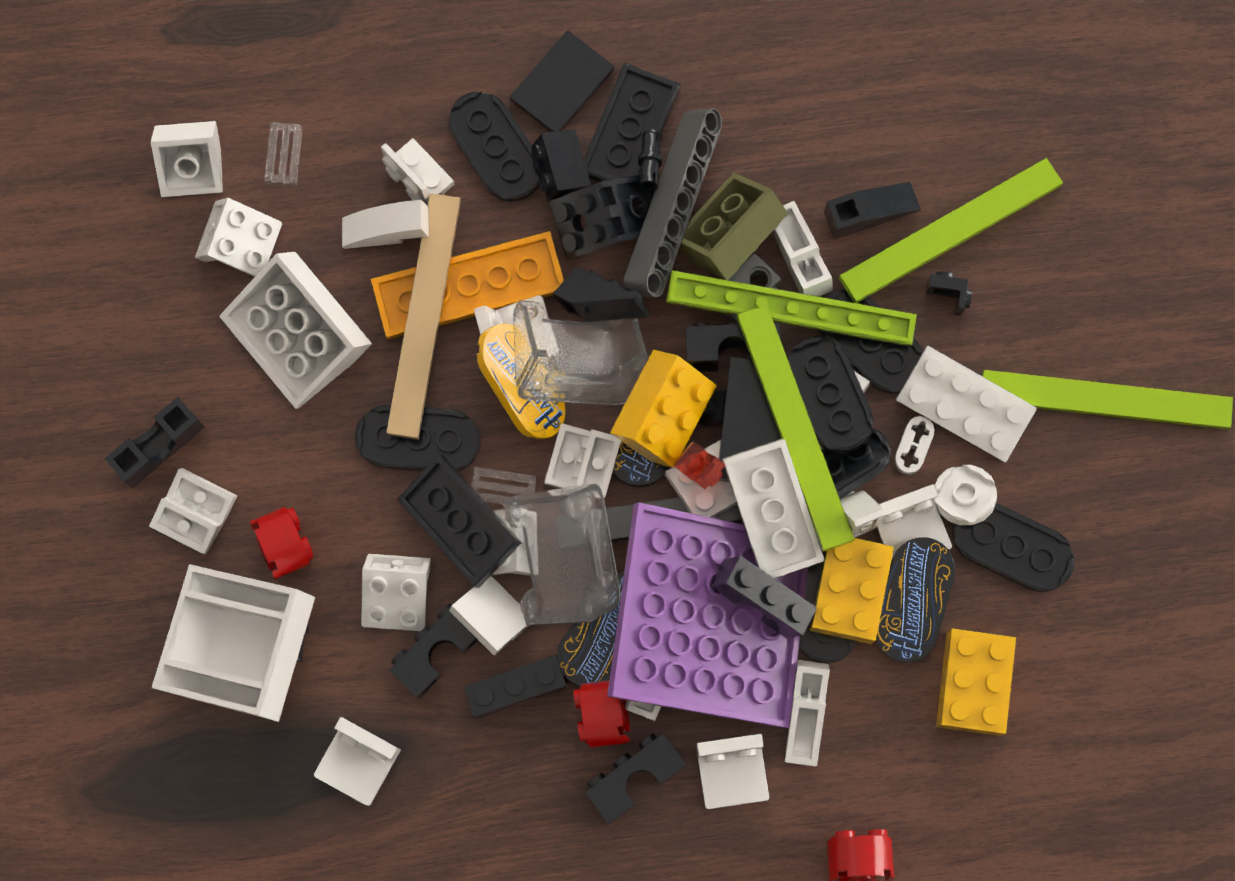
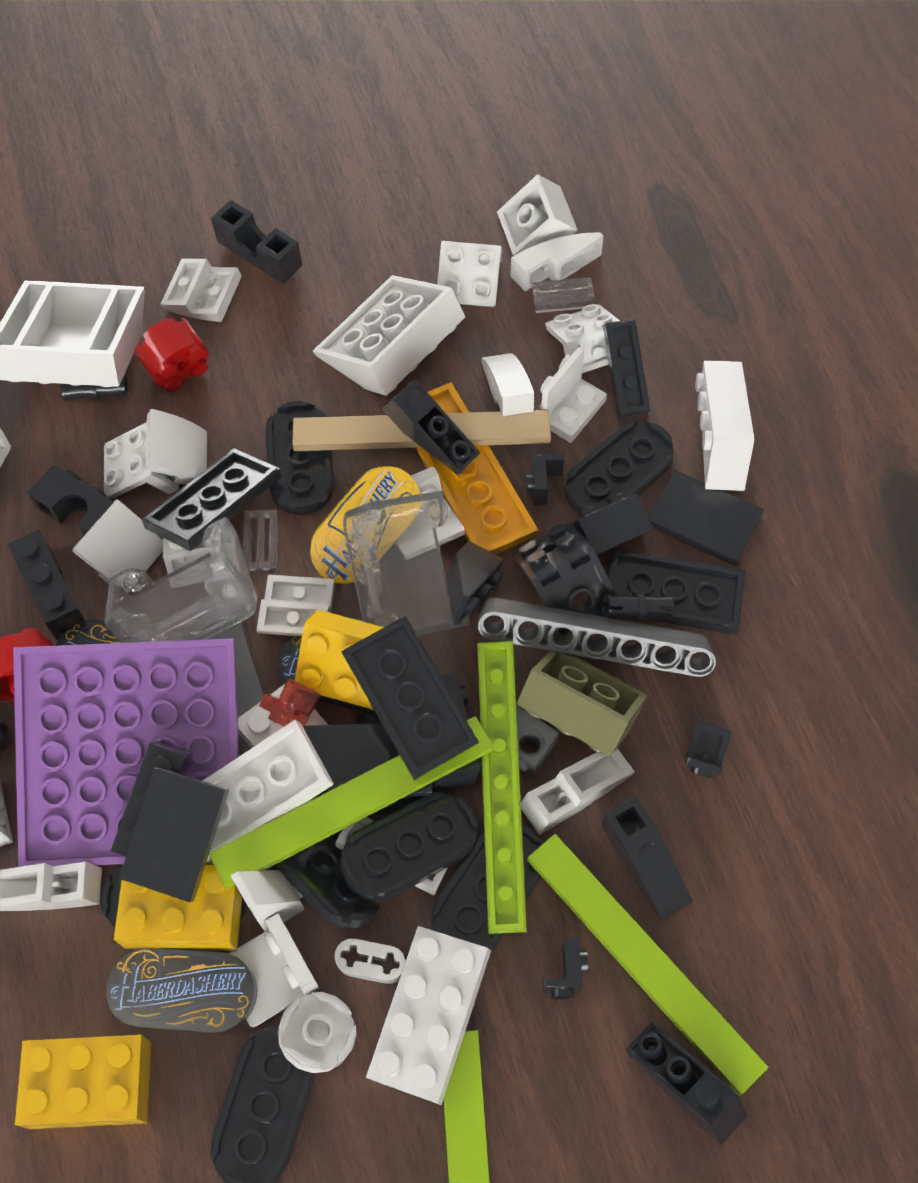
camera: 80 degrees right, 15 degrees down
(243, 152) = (555, 258): none -> white slope
(342, 139) = (585, 331): none -> white bracket
(393, 551) = (175, 447): none -> white slope
(394, 112) = (626, 368): none -> black tile
(432, 303) = (430, 427): none -> black slope
(476, 38) = (724, 425): none -> white wedge
(495, 220) = (543, 466): none -> black bracket
(720, 361) = (410, 698): none -> black tile
(786, 137) = (707, 748): none -> black bracket
(805, 573) = (174, 834): none -> black tile
(1047, 220) = (688, 1083): none -> black slope

